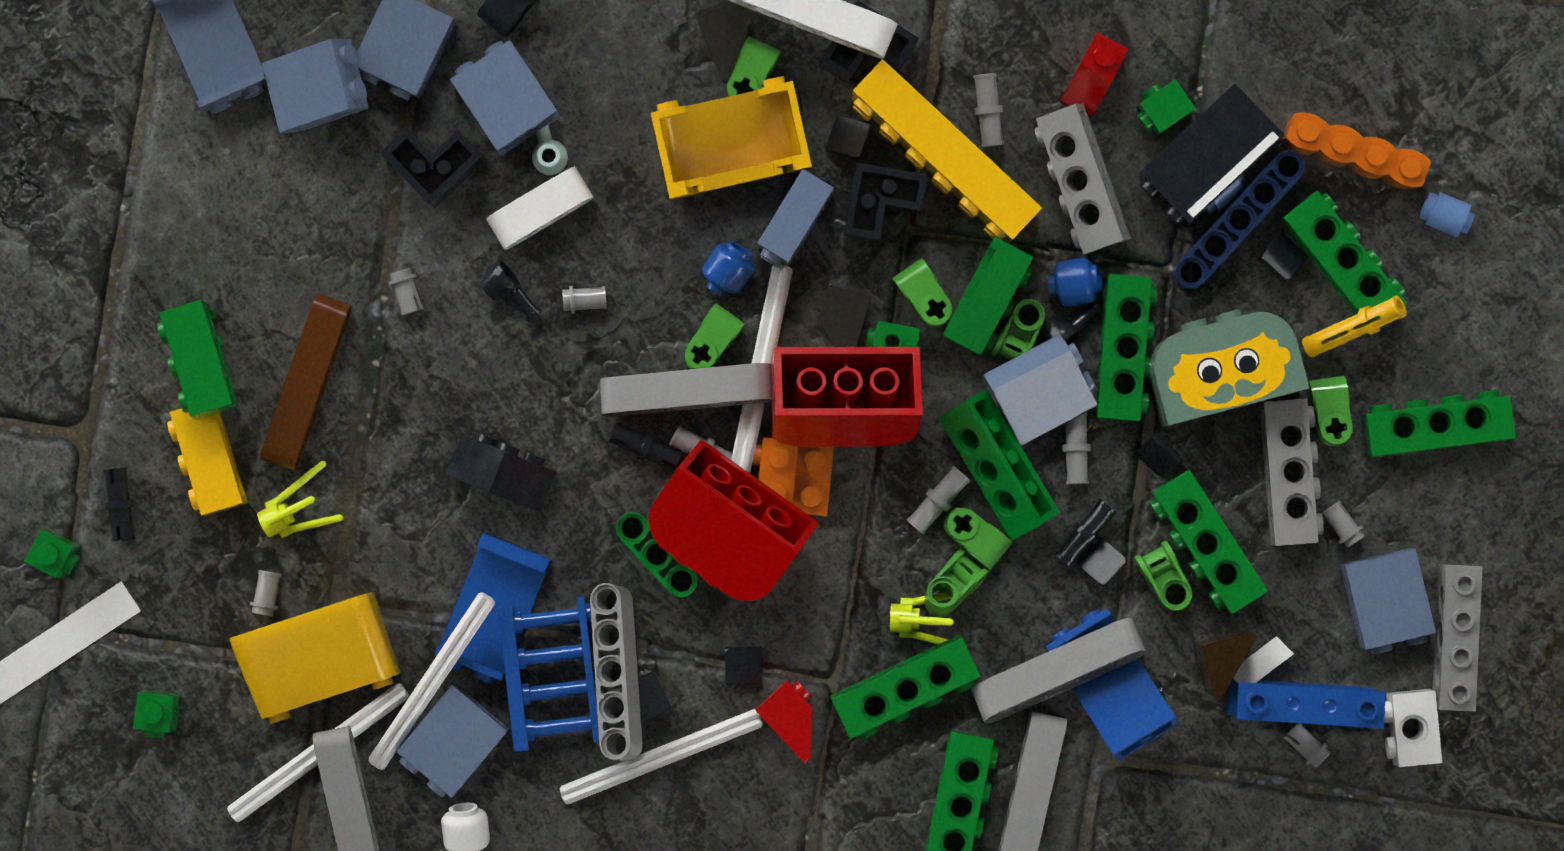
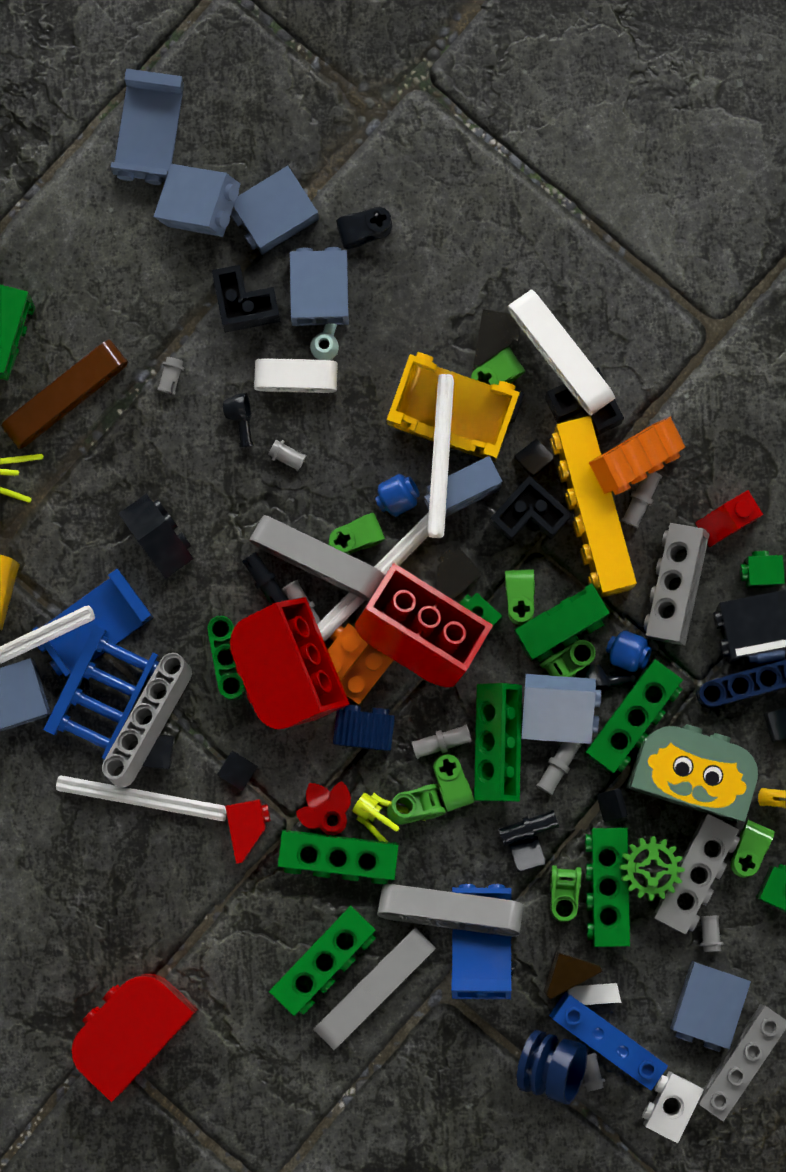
camera: 30 degrees right, 5 degrees down
(751, 201) = (440, 458): none -> white axle
(849, 538) = (364, 728): none -> dark blue brick
(856, 641) = (323, 804): none -> red plate
(958, 70) = (637, 456): none -> orange brick
(1250, 510) = (651, 882): none -> bright green gear
(1265, 766) = (552, 1067): none -> dark blue wheel

